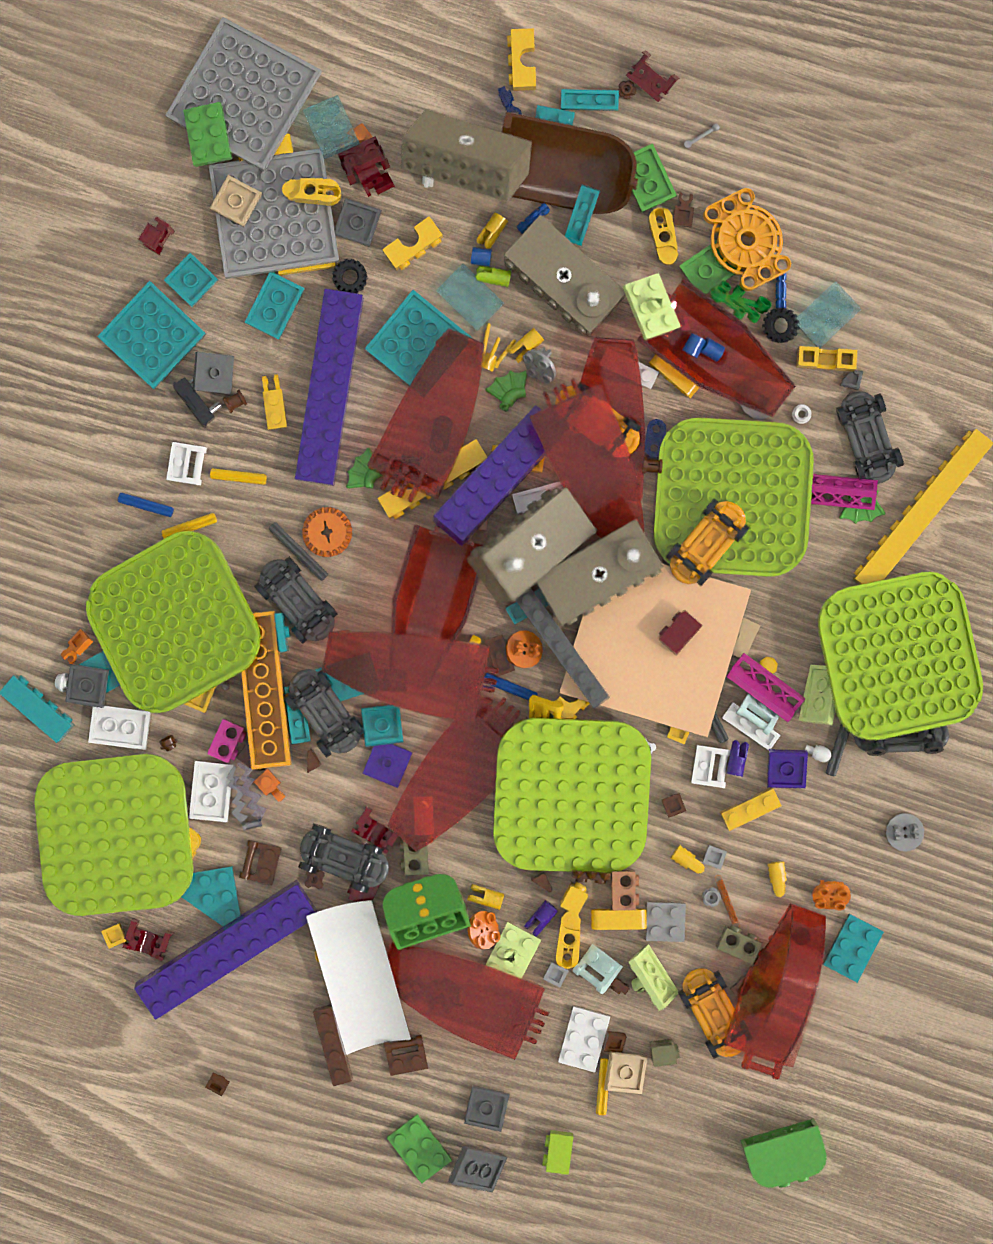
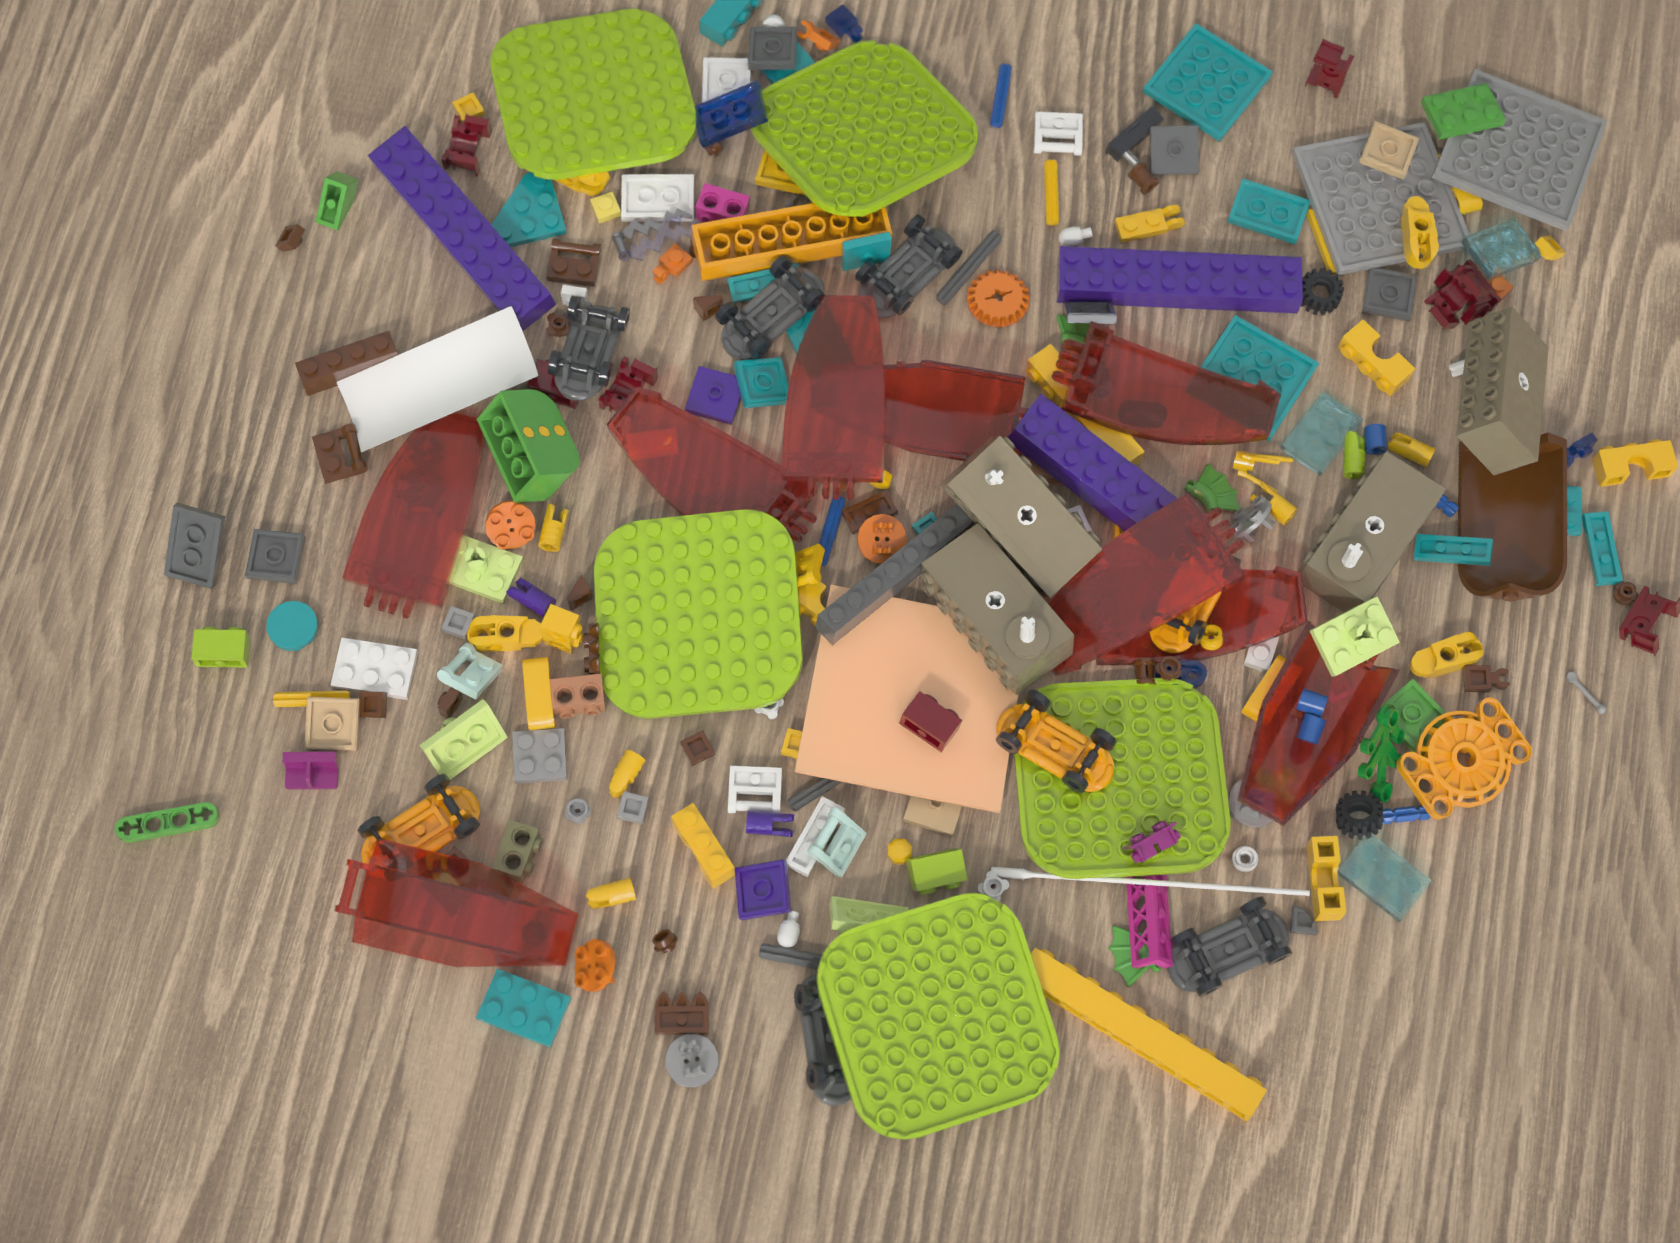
camera: 80 degrees right, 20 degrees down
(64, 624) = (843, 22): none -> clear blue plate
(151, 727) = (730, 114): none -> clear blue plate
(186, 1045) = (336, 199): none -> bright green slope
(190, 525) = (987, 153): yellow axle -> none
(191, 279) = (1282, 117): teal plate -> none
(214, 833) = (605, 207): none -> light yellow plate
(279, 464) = (1074, 236): none -> white cylinder
(293, 865) = (567, 291): none -> white plate
(331, 86) = (1550, 248): none -> yellow plate
(352, 463) = (1089, 312): none -> dark grey plate
(419, 1148) = (219, 480): bright green plate -> none
(420, 855) = (600, 444): olive brick -> none
(543, 1098) = (292, 625): none -> teal tile
(635, 407) = (1212, 644): none -> yellow bush
(653, 182) = (1517, 629): bright green plate -> none
(658, 447) = (1172, 662): none -> reddish brown plate
(660, 1090) = (311, 770): none -> magenta panel
(664, 1052) = (362, 763): olive brick -> none
(687, 1196) = (167, 826): none -> bright green beam
(726, 901) = (563, 841): orange piece -> none
(773, 700) = (865, 847): dark pink fence -> none
(785, 1154) = (229, 939): bright green brick -> none
(786, 475) = (1143, 844): none -> magenta hinge
(788, 641) = (936, 870): none -> lime brick
(796, 577) = (1016, 873): none -> white piece
(797, 601) = (992, 878): none -> white plate
(817, 843) = (664, 941): none -> reddish brown plate
(874, 836) = (681, 1017): none -> reddish brown plate

